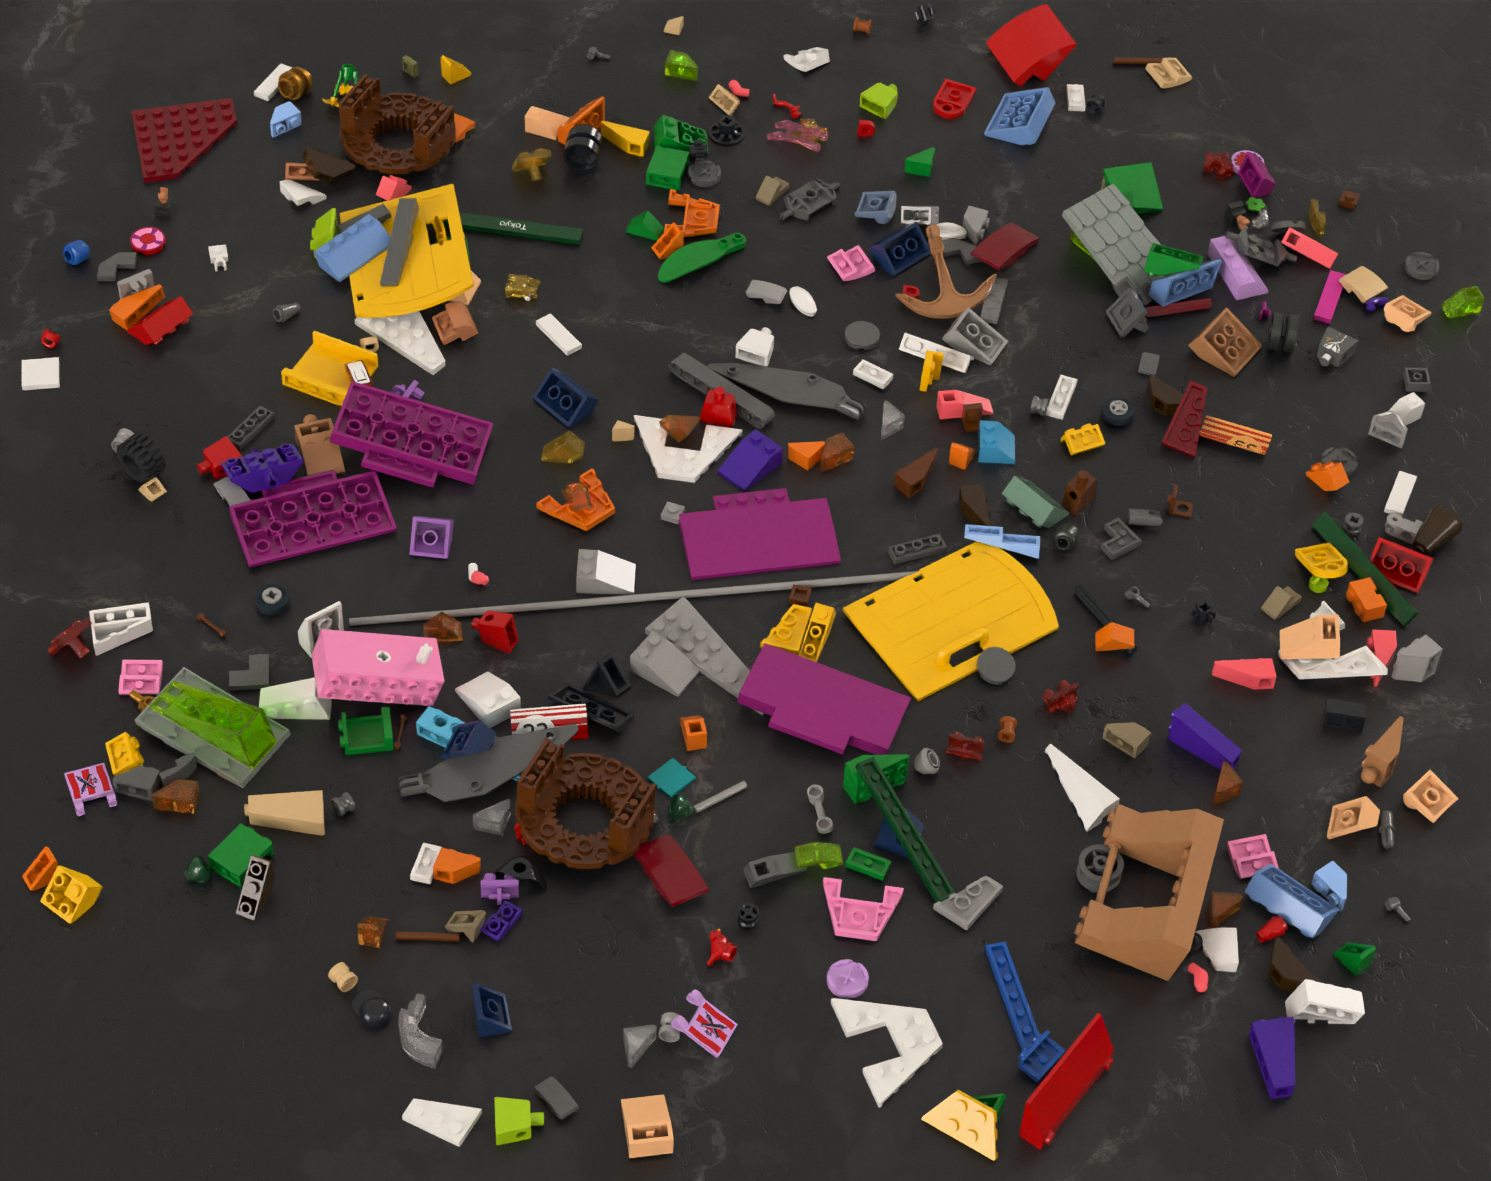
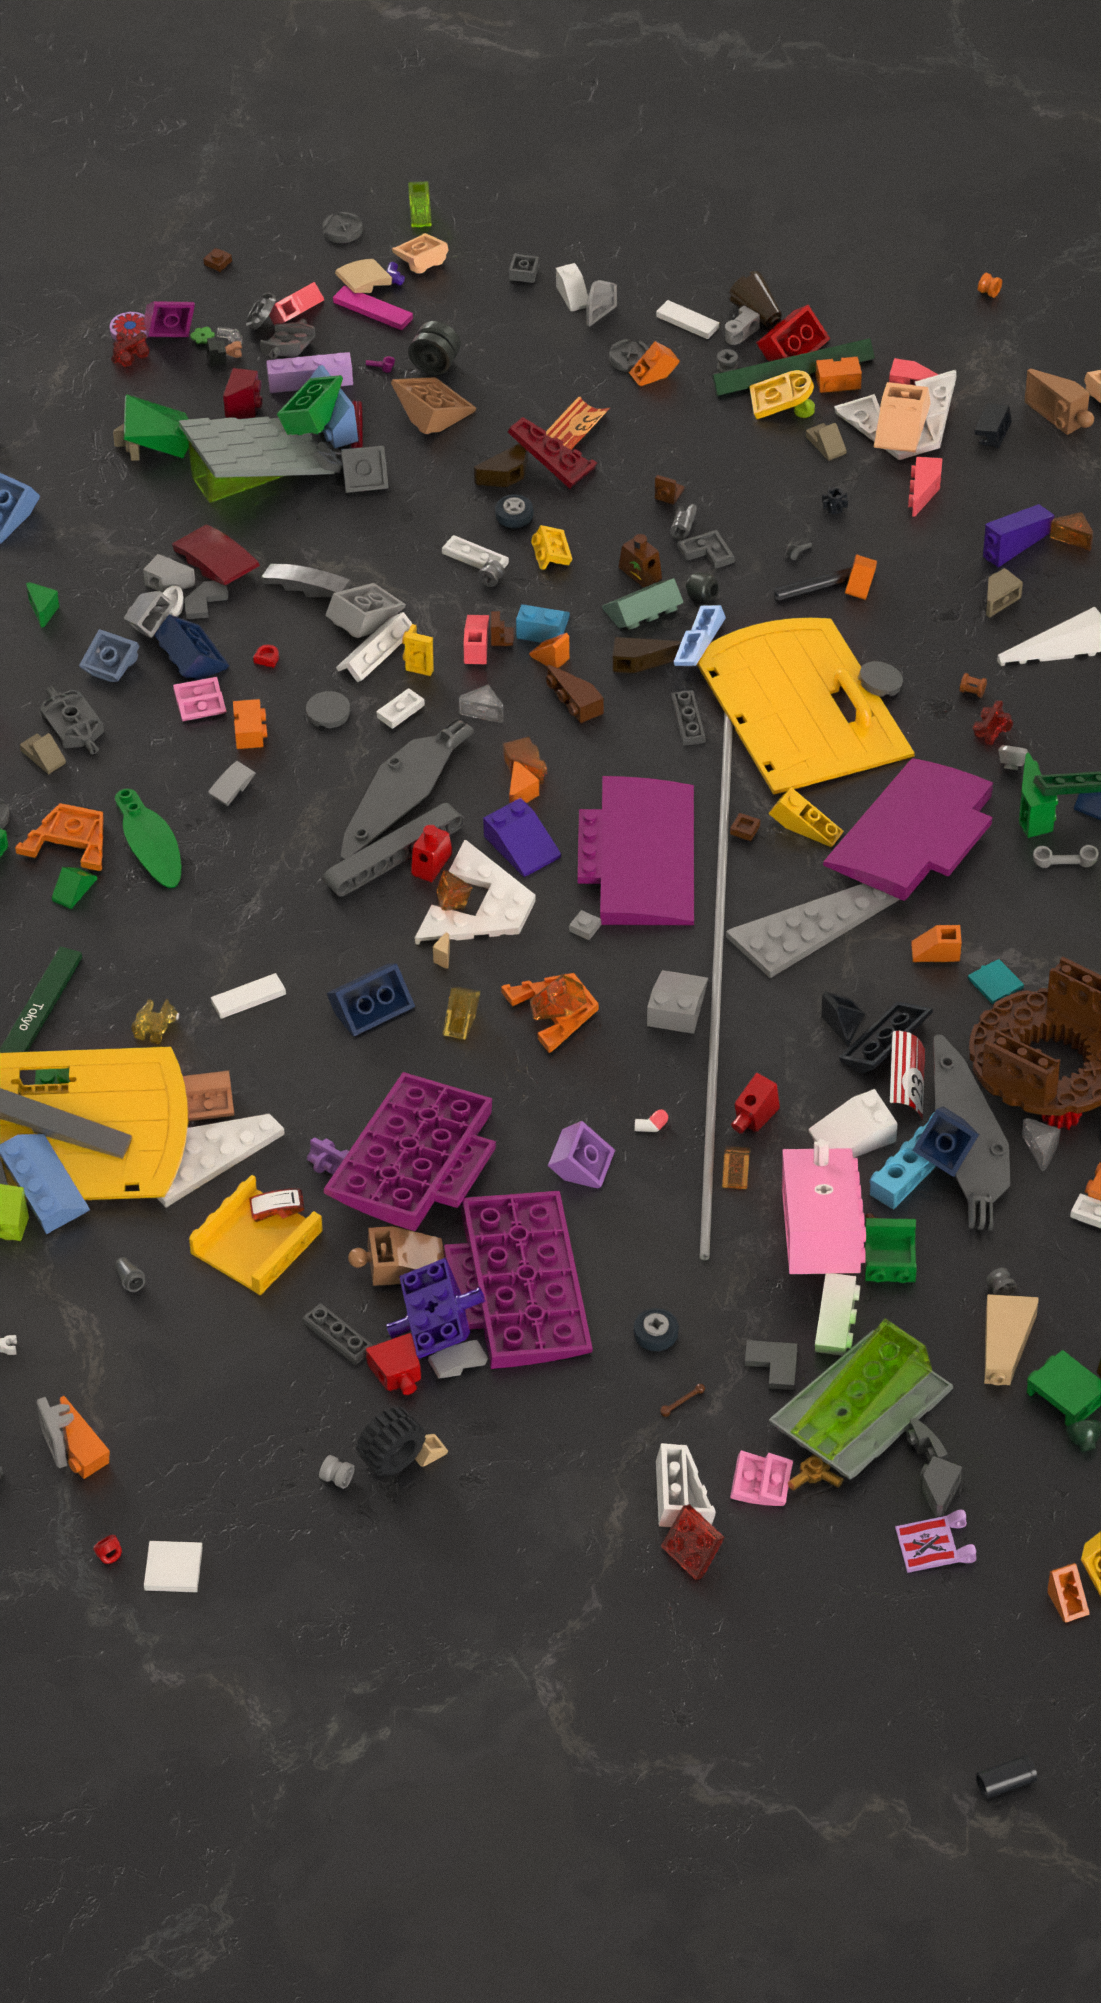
camera: 75 degrees left, 0 degrees up
(124, 753) = (892, 1501): yellow bracket -> none
(161, 321) = (113, 1414): red slope -> none
(177, 796) = (967, 1445): clear orange slope -> none
(328, 618) = (731, 1270): white slope -> none
(369, 341) = (215, 1189): tan tile -> none
(663, 664) = (829, 963): light grey slope -> none
(668, 242) = (116, 861): orange slope -> none
(679, 808) = (1040, 973): clear green brick -> none
(720, 796) = (1030, 941): light grey bar -> none
(756, 347) = (328, 804): white torso -> none
(791, 630) = (797, 844): yellow wing -> none
(803, 301) = (255, 752): white arm -> none
(830, 291) = (248, 723): none -> orange brick
(950, 302) = (304, 616): medium nougat piece -> none
(1063, 699) = (937, 632): clear red hips -> none
(1149, 364) = (443, 472): dark grey slope -> none
(1179, 229) = (242, 394): none -> dark red slope
(1317, 218) = (250, 289): clear yellow slope -> none
(1335, 348) = (461, 316): dark grey torso -> none
(1417, 660) = (935, 347): light grey slope -> none

